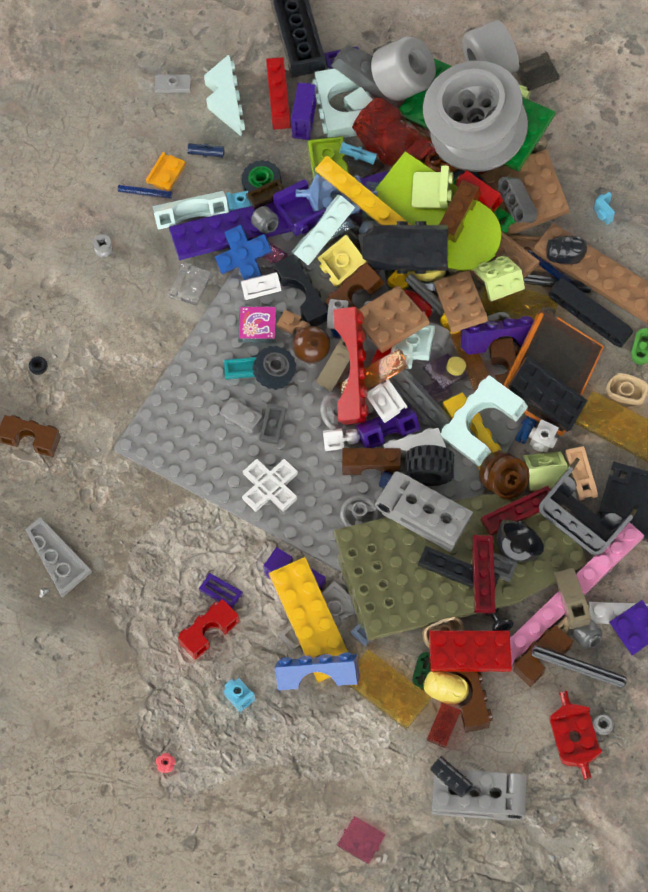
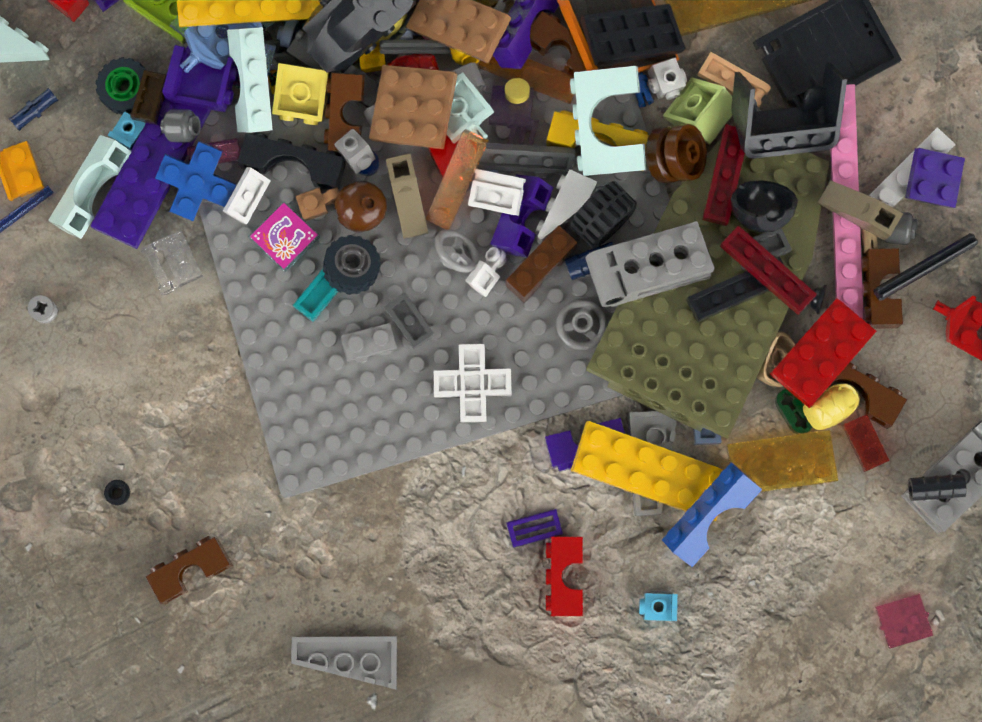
camera: 45 degrees left, 15 degrees up
(352, 404) = (388, 155): arch -> none

